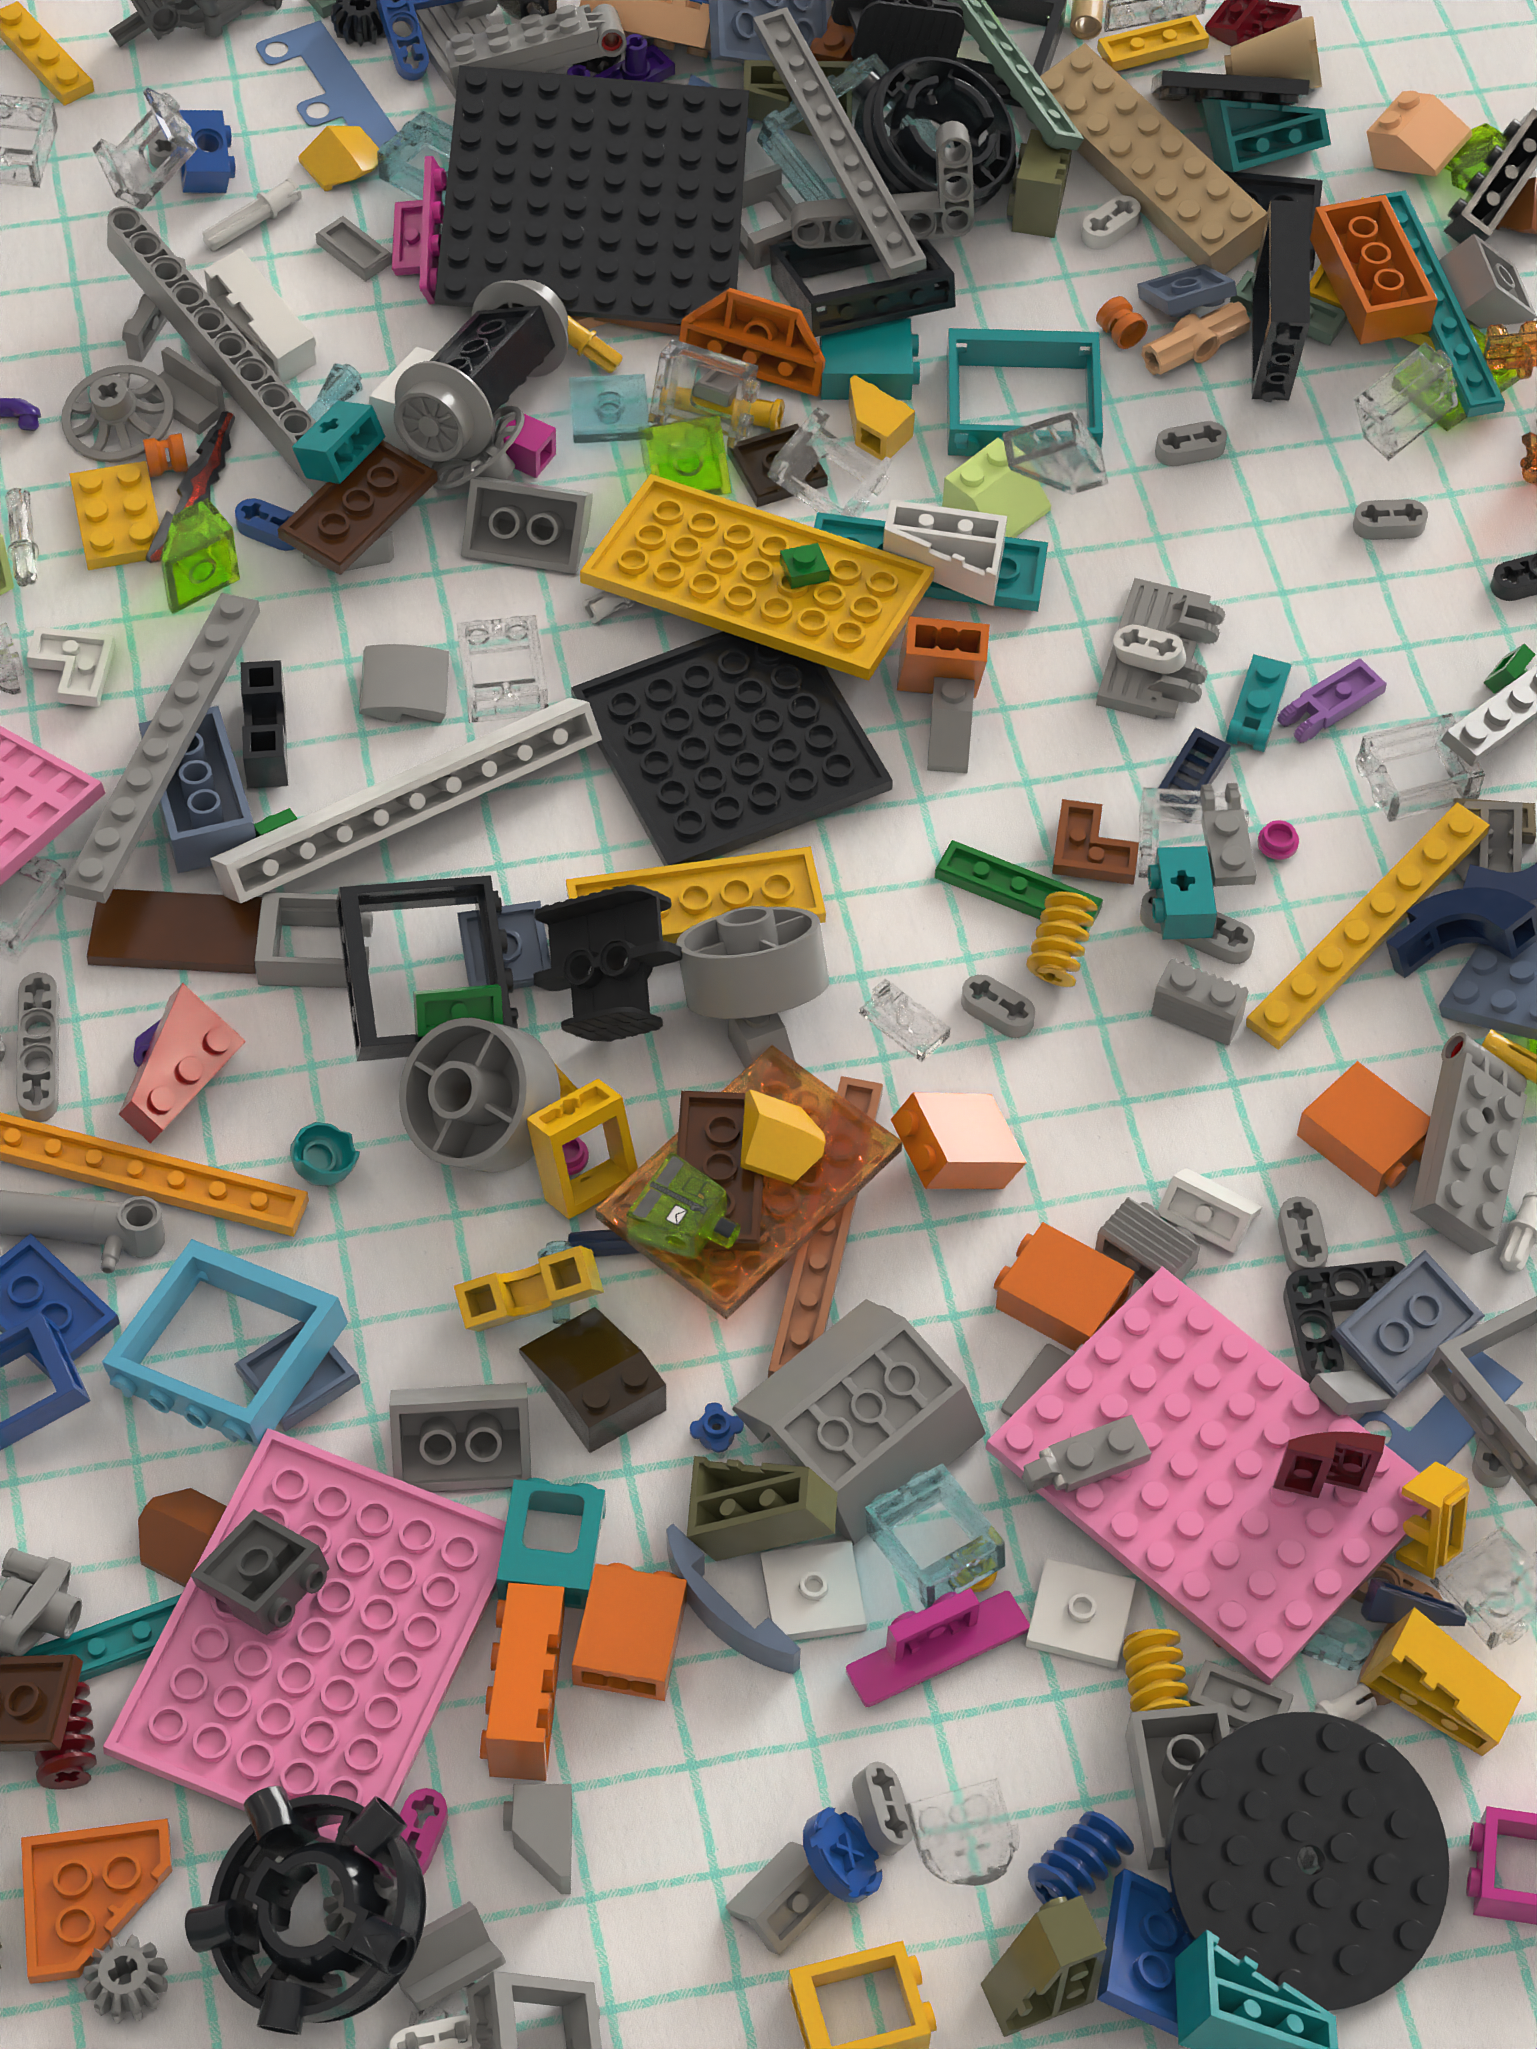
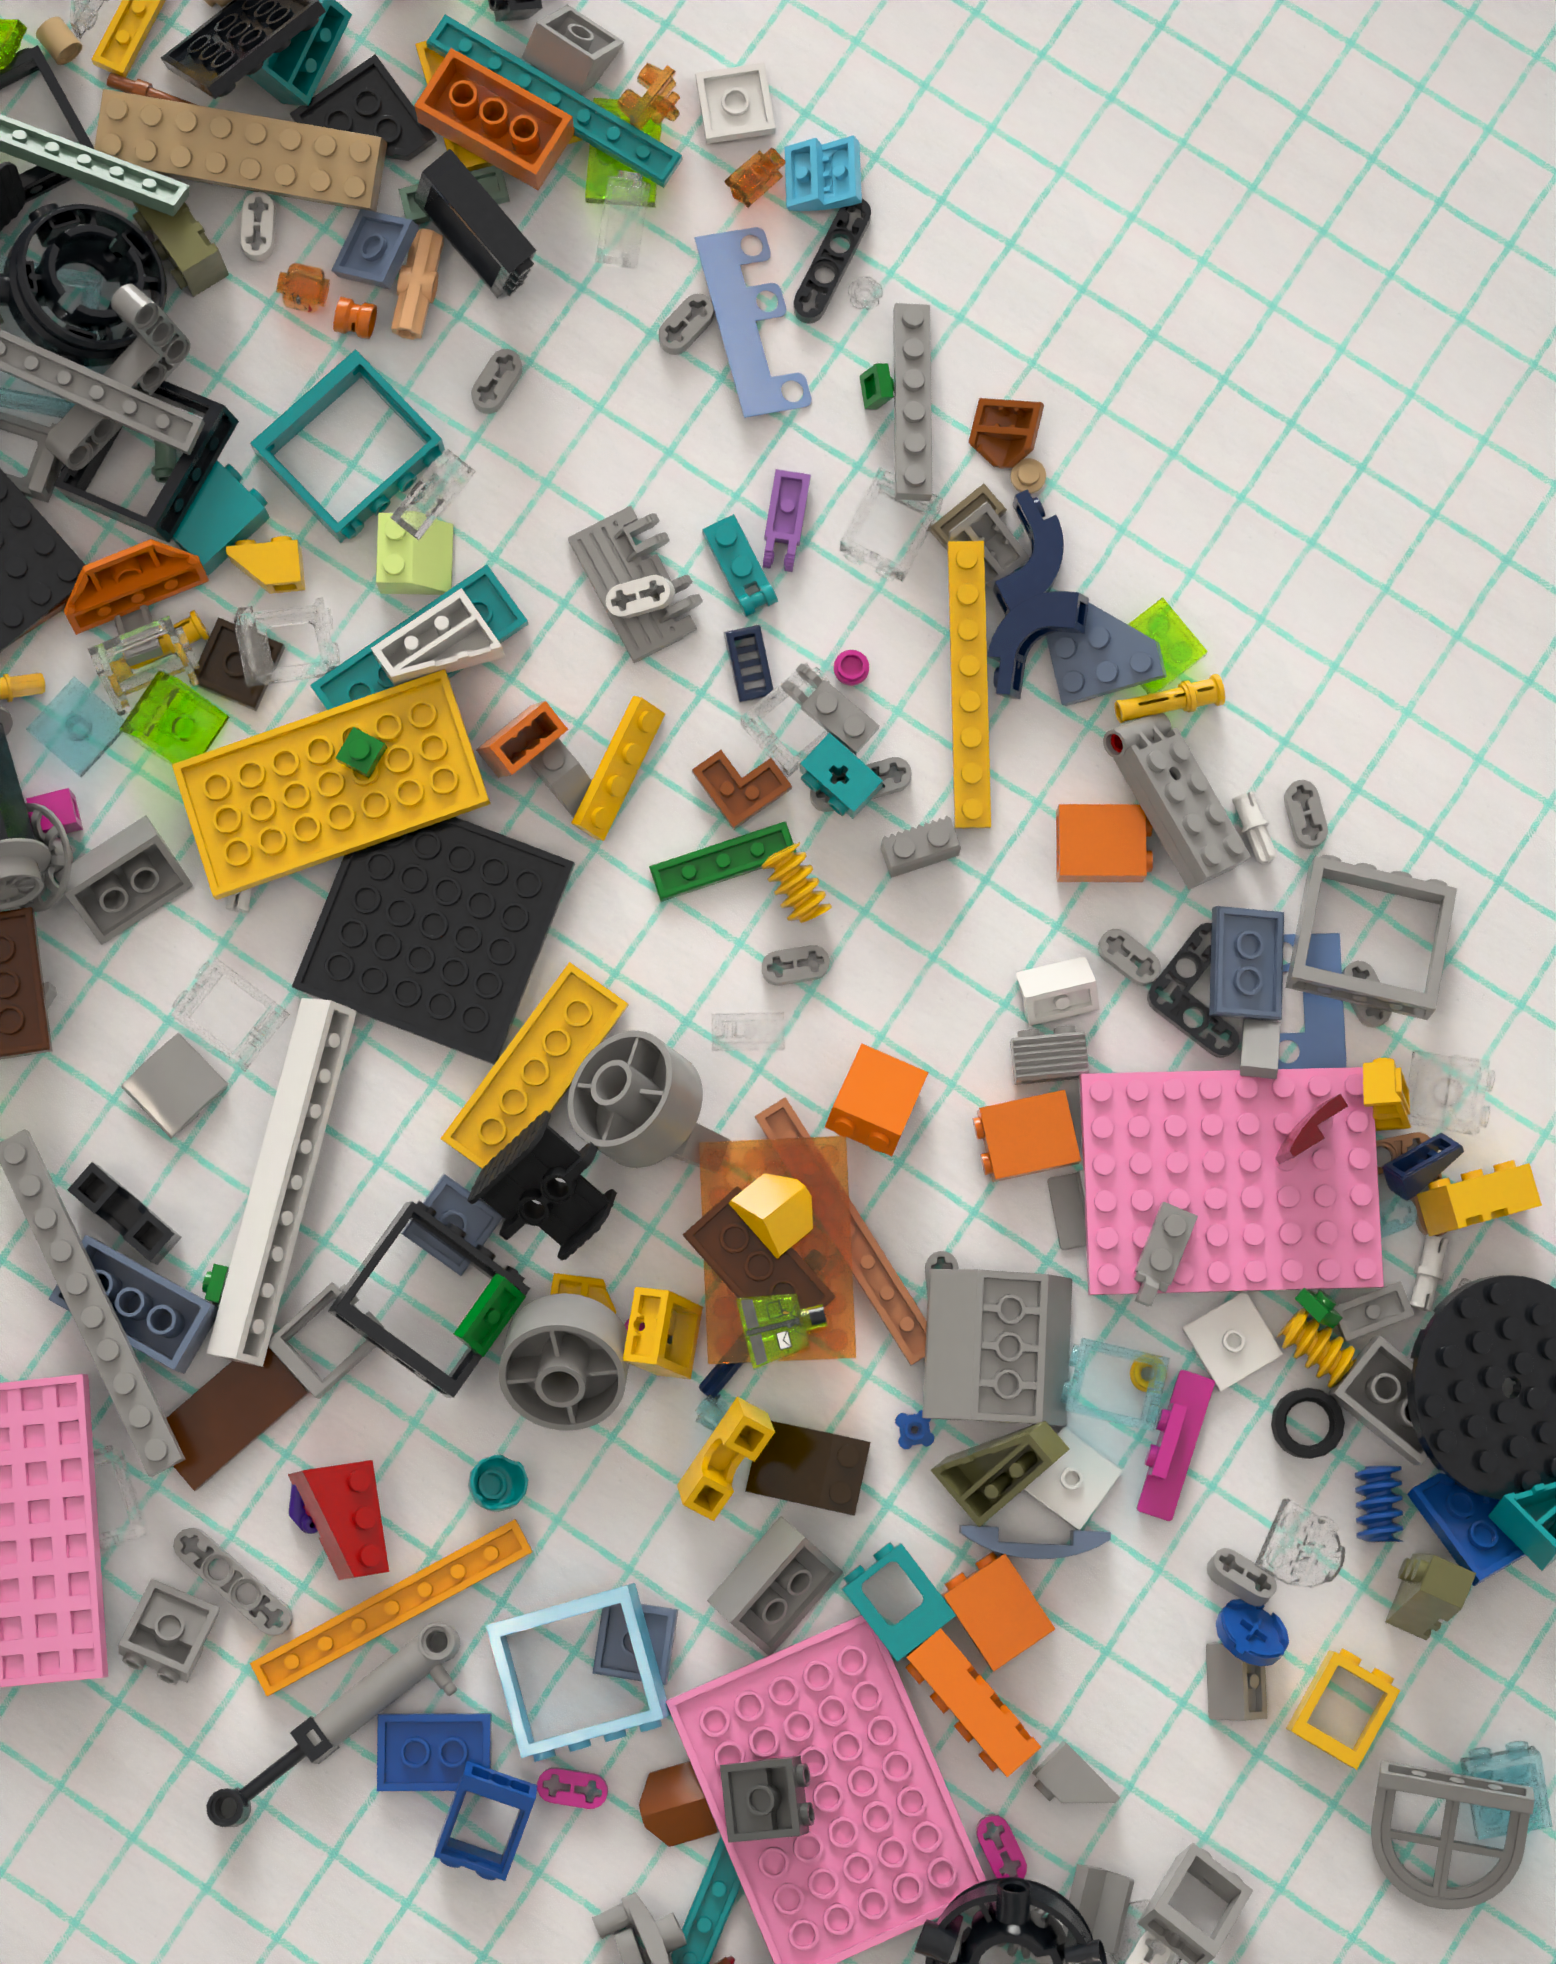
camera: 45 degrees left, 25 degrees up
(124, 1433) = (571, 1797): none -> dark pink beam
(1001, 753) = (618, 768): none -> yellow plate
(1089, 1705) = (1335, 1417): none -> black tyre
(1102, 275) = (303, 287): none -> clear orange head
(1192, 1641) = (1319, 1306): none -> green plate
(1437, 541) = (737, 318): none -> medium blue piece

